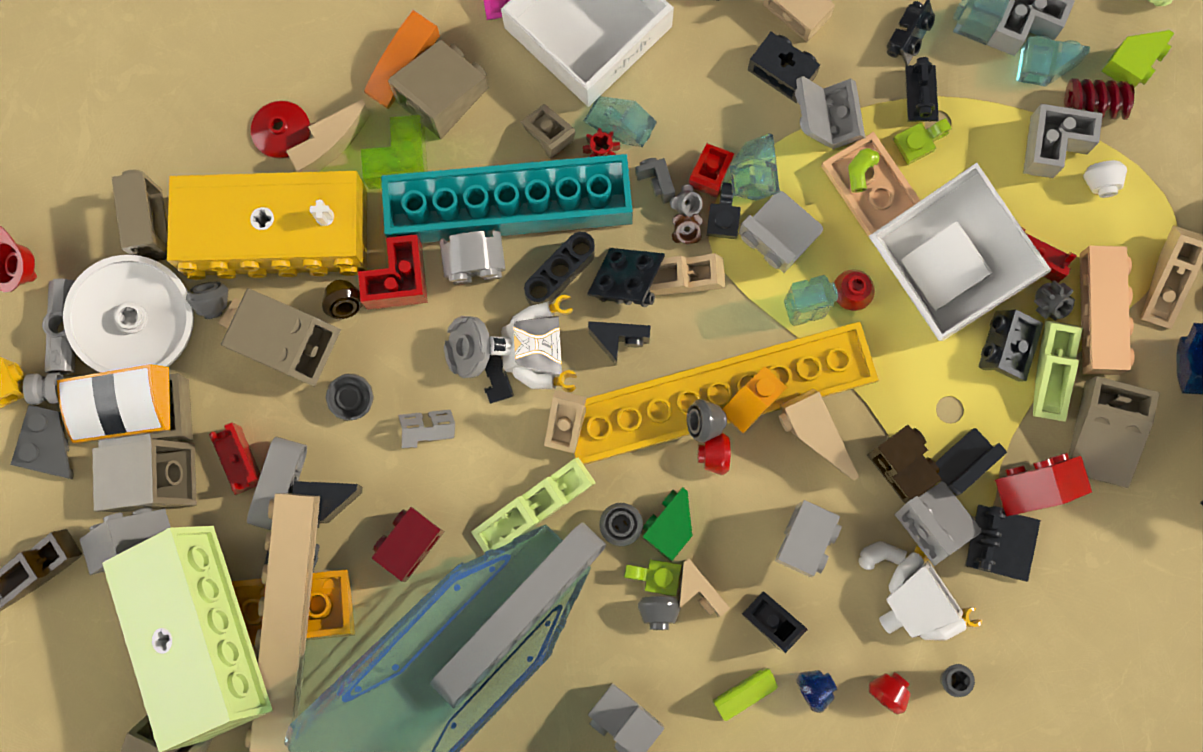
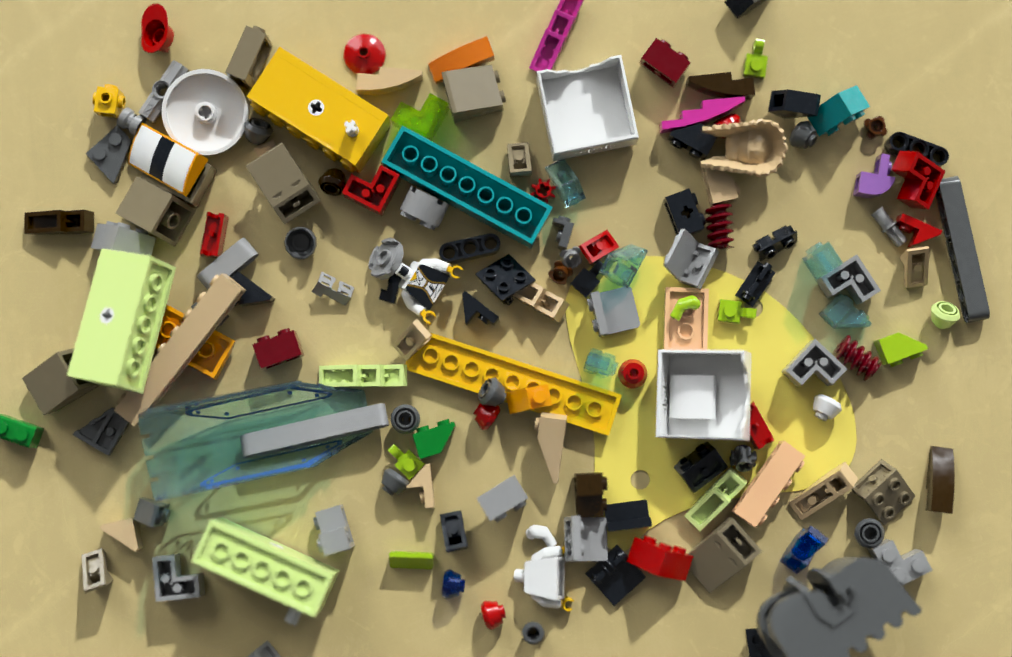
camera: 30 degrees right, 5 degrees up
(833, 53) = (719, 226): none -> dark red piece

